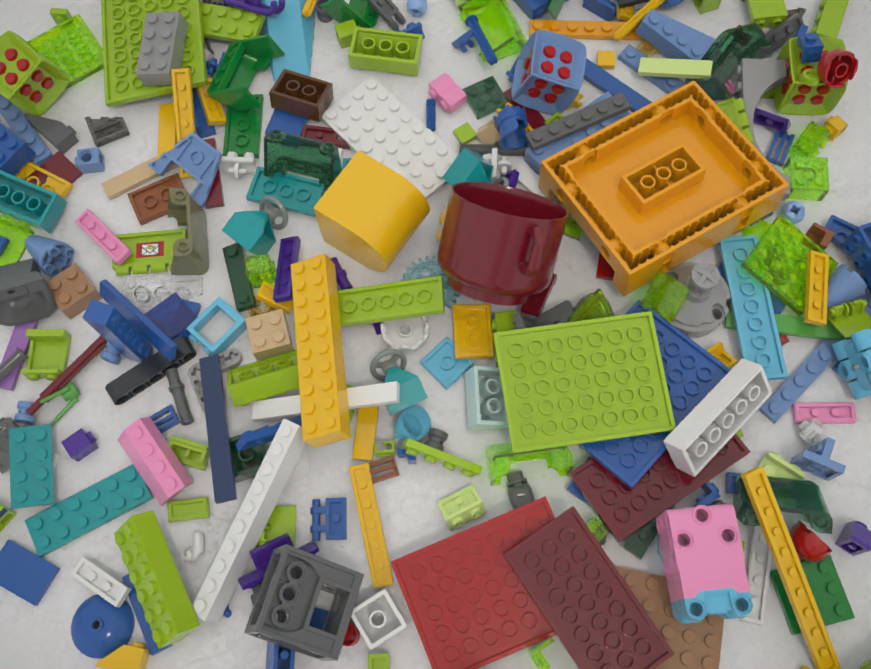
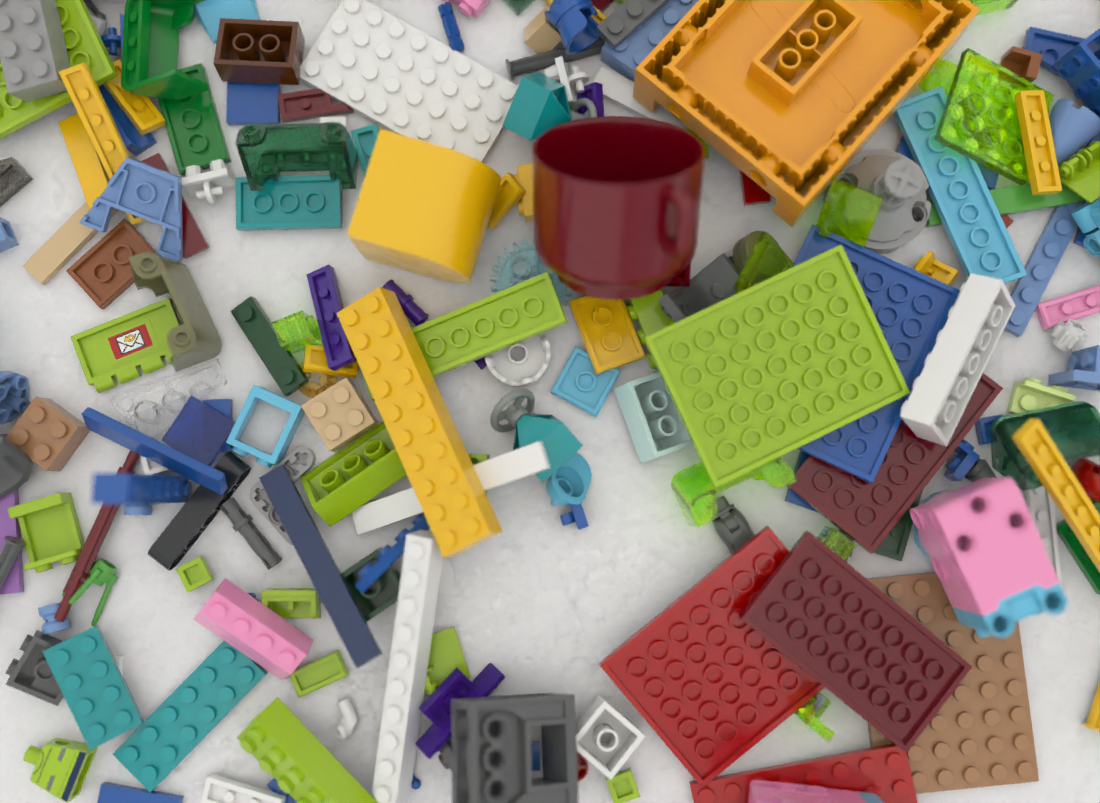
camera: 25 degrees left, 15 degrees up
(80, 444) = (145, 637): dark purple brick -> none
(103, 236) = (58, 343): bright pink tile -> none
(130, 412) = (195, 574): none -> lime plate
(167, 426) = (252, 558): blue tile -> none
(255, 228) = (267, 276): teal piece -> none
(335, 519) = (510, 628): blue plate -> none
(365, 433) = (512, 513): yellow tile -> none
(371, 526) = (557, 622): yellow tile -> none
(380, 448) = (536, 520): lime piece -> none
(385, 468) = (523, 563): dark orange tile -> none
(430, 225) = (508, 195): none -> yellow tile
(434, 455) = (610, 515): lime plate -> none
(436, 438) = (604, 490): dark grey wheel -> none
(461, 507) = (663, 565): yellowish green bracket -> none
(464, 133) = (507, 44): lime tile -> none
(797, 208) = (979, 29): light blue piece -> none

